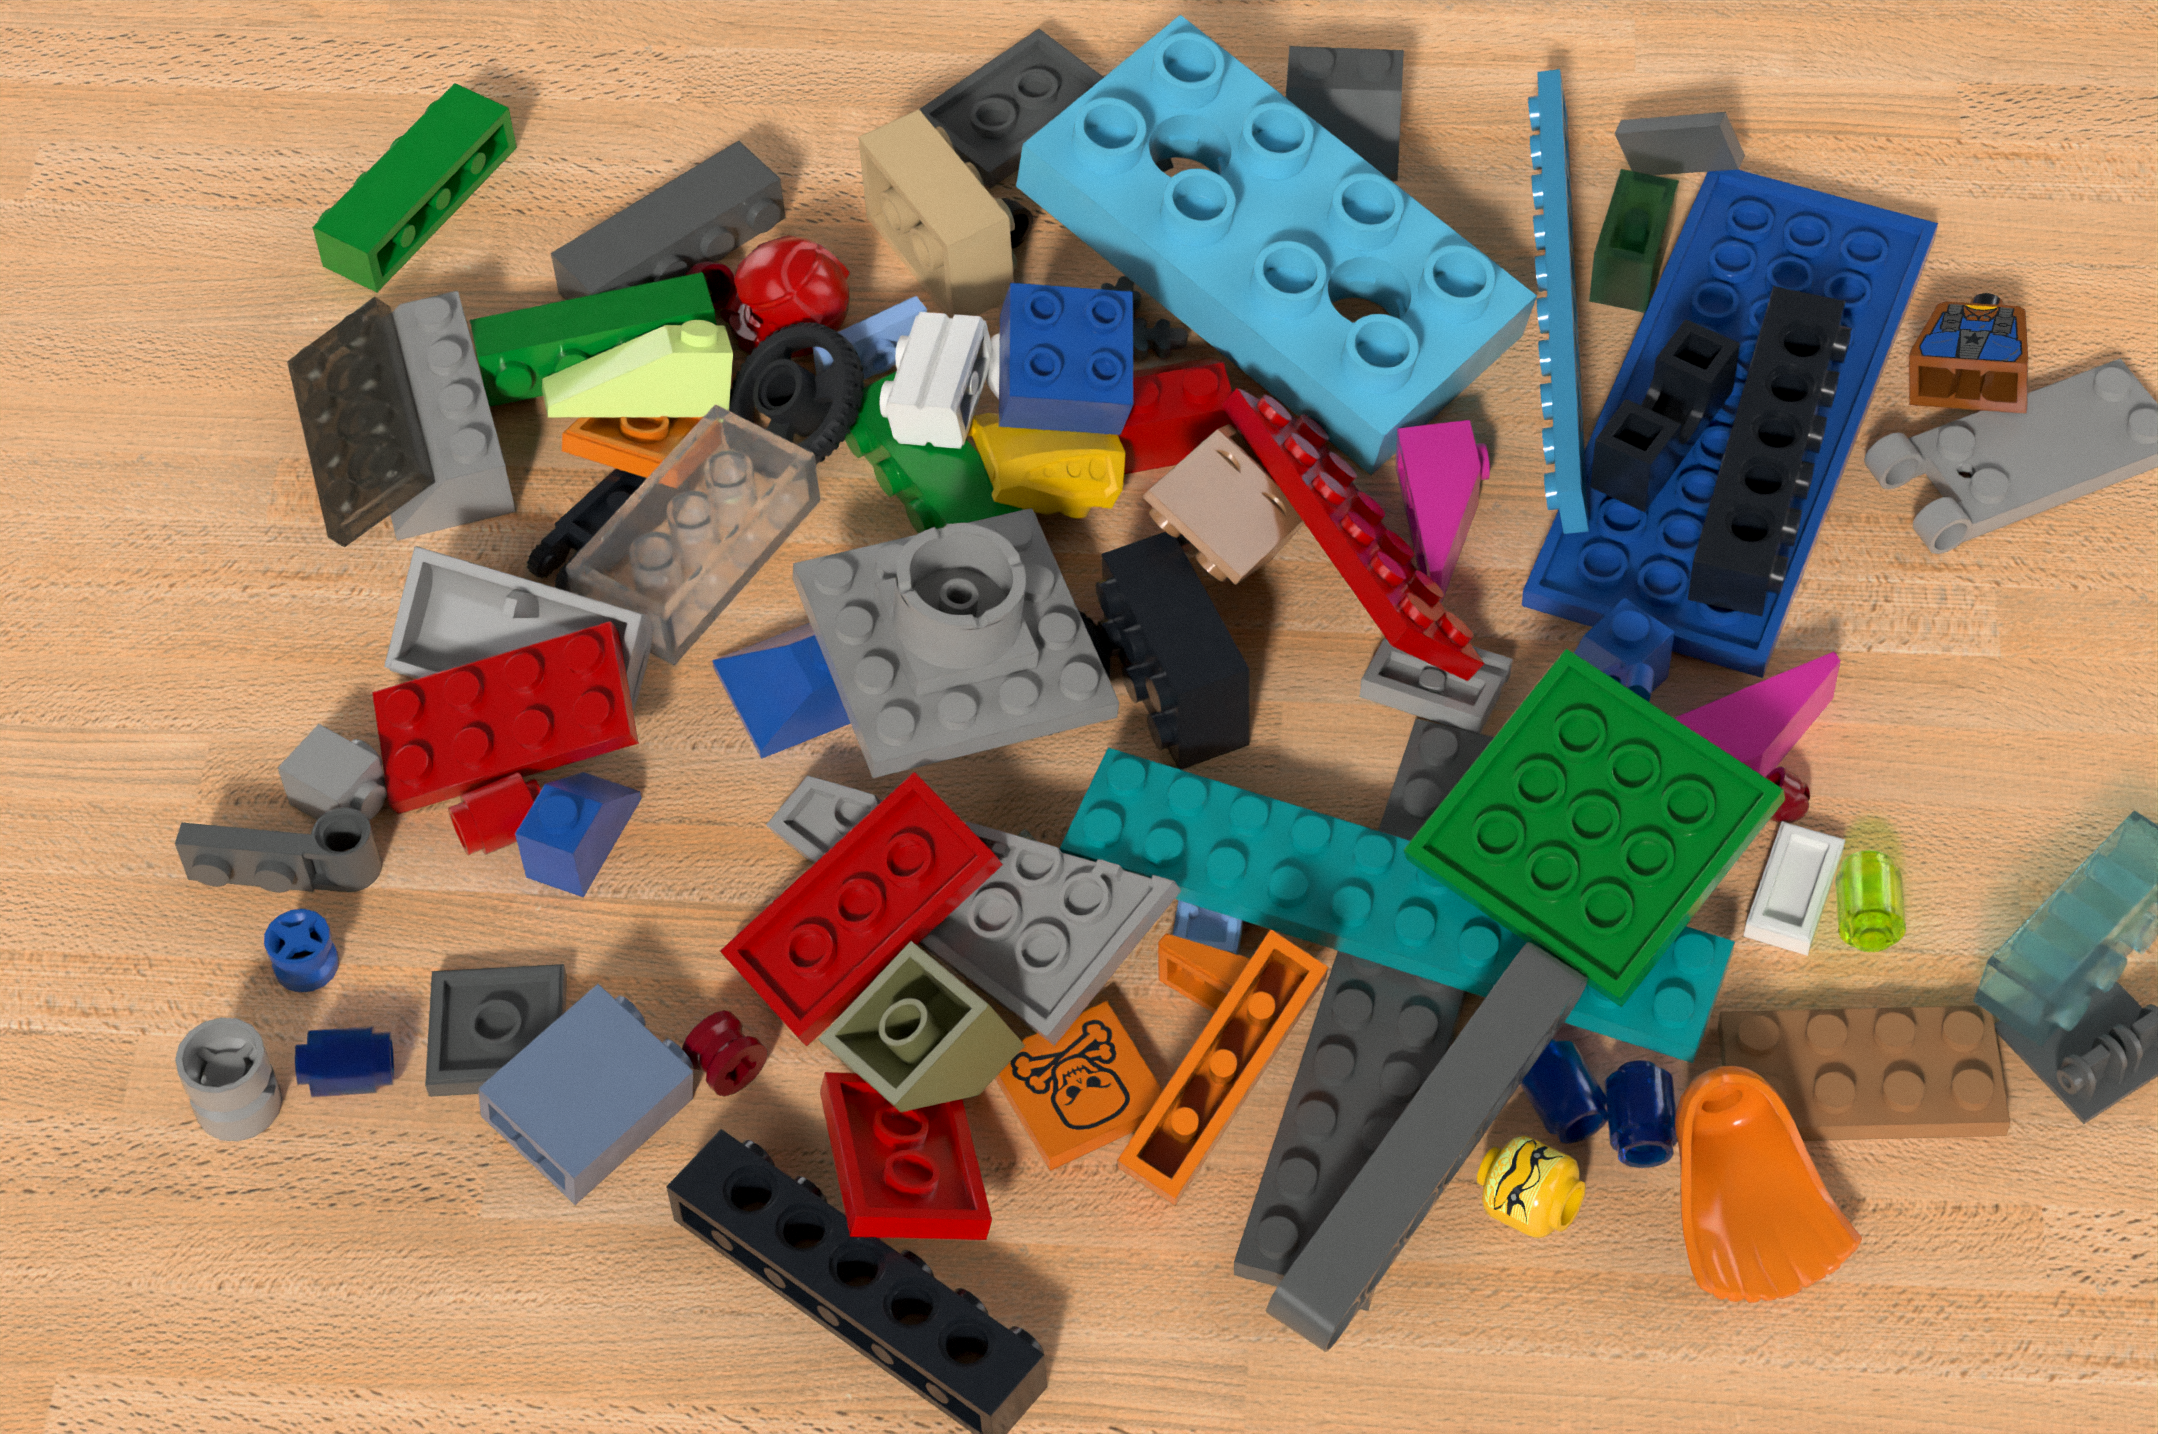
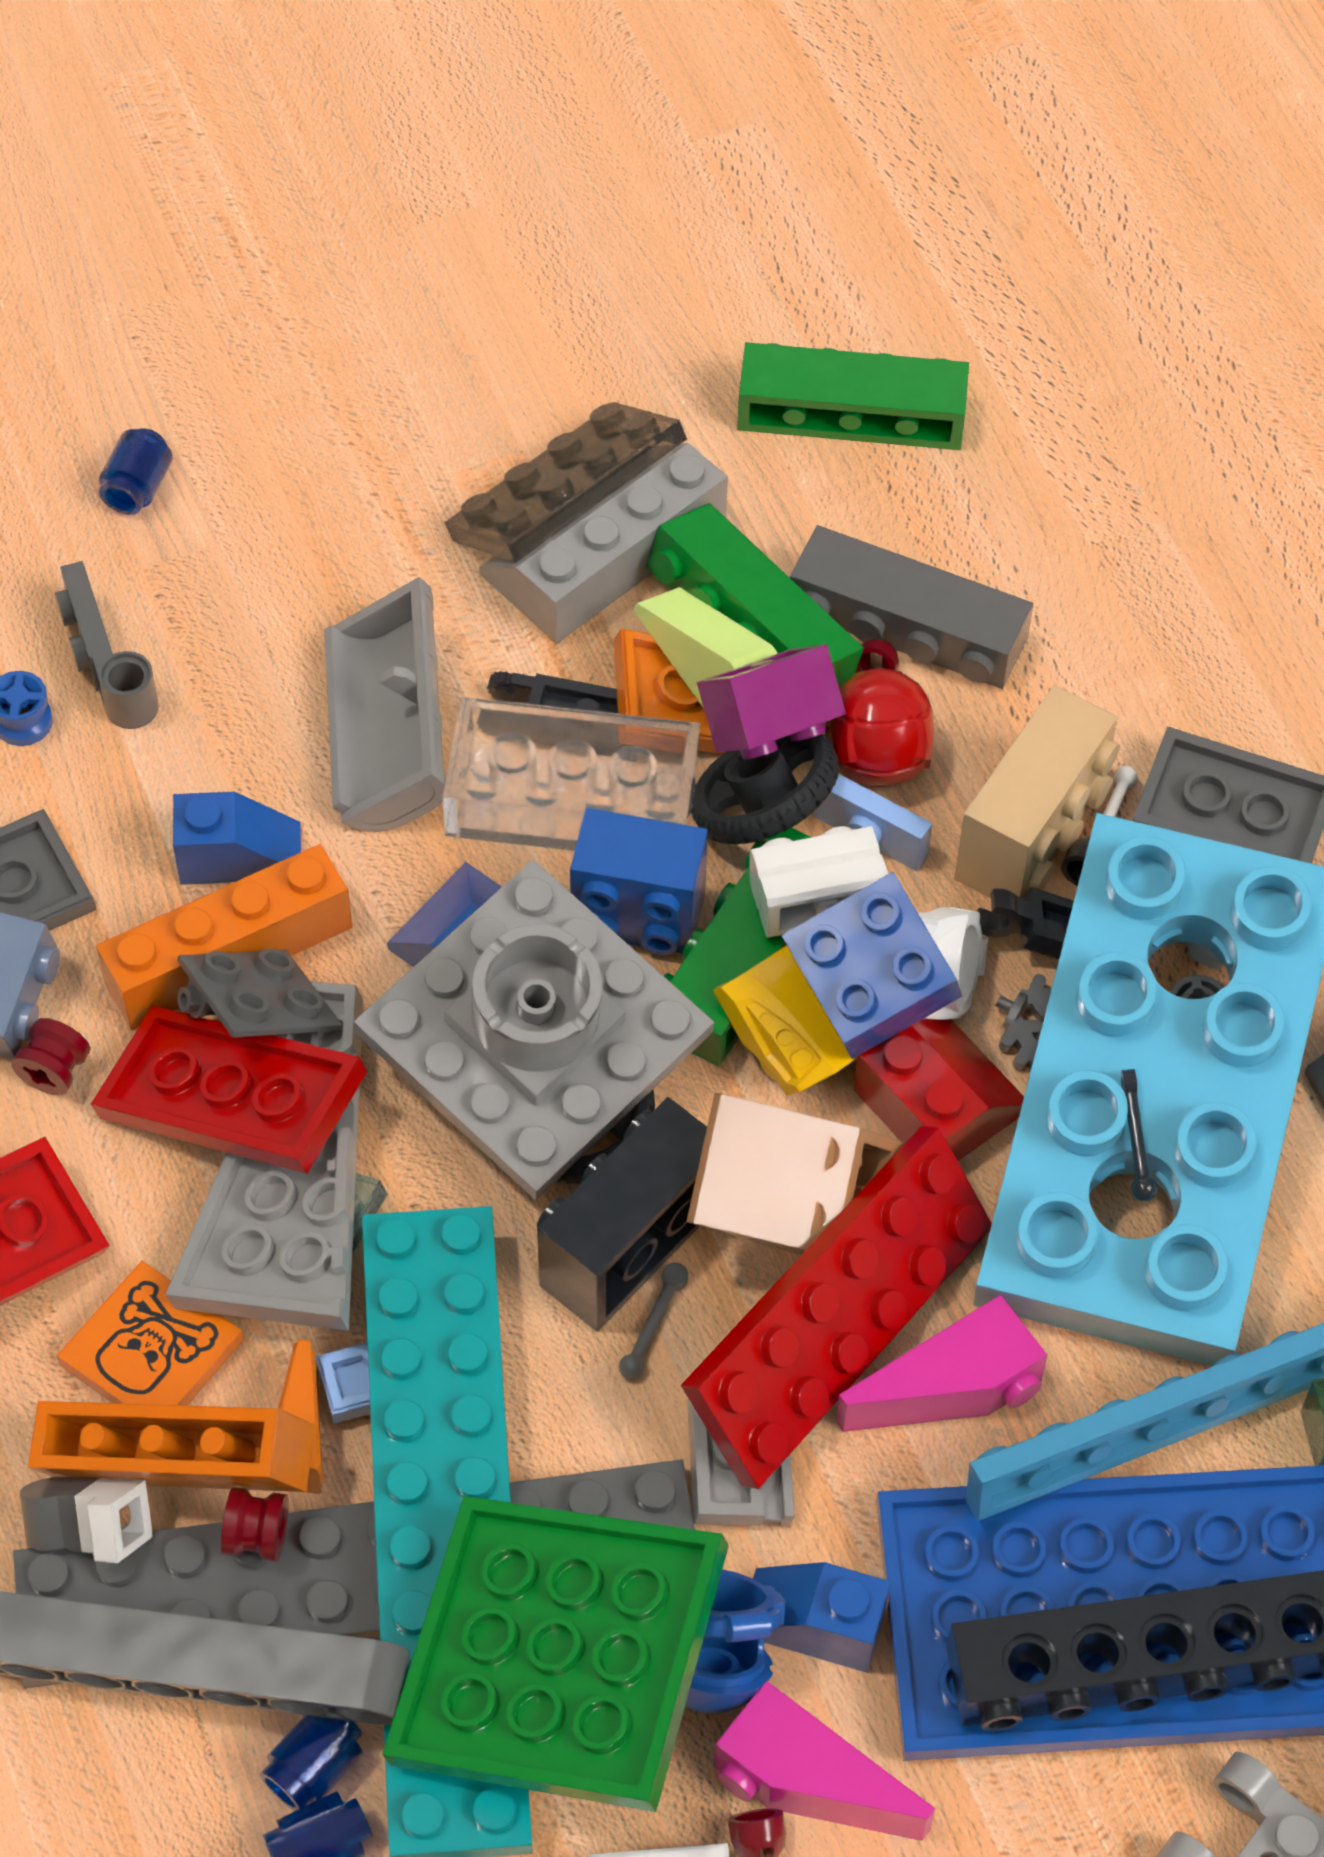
camera: 60 degrees right, 5 degrees up
(87, 757) = (134, 470): none -> clear blue brick
(333, 774) = (194, 648): light grey brick -> none
(493, 813) = (210, 768): red brick -> none
(504, 717) = (305, 734): red plate -> none
(683, 865) = (275, 908): none -> orange brick
(741, 331) = (771, 700): none -> magenta brick
(763, 845) = (254, 993): none -> dark grey hinge
(839, 502) = (641, 877): none -> blue brick
(921, 1035) = (118, 1195): olive slope -> none
(1054, 266) = (1036, 916): none -> black plate
(1239, 1180) = (85, 1515): none -> leg
(1300, 726) = (674, 1279): none -> dark grey hinge
(1330, 1036) = (254, 1524): none -> dark red wheel
(1372, 277) = (1143, 1186): none -> black hinge
(1531, 1187) = (188, 1770): yellow head -> none
(1650, 440) = (1181, 1539): black arch -> none

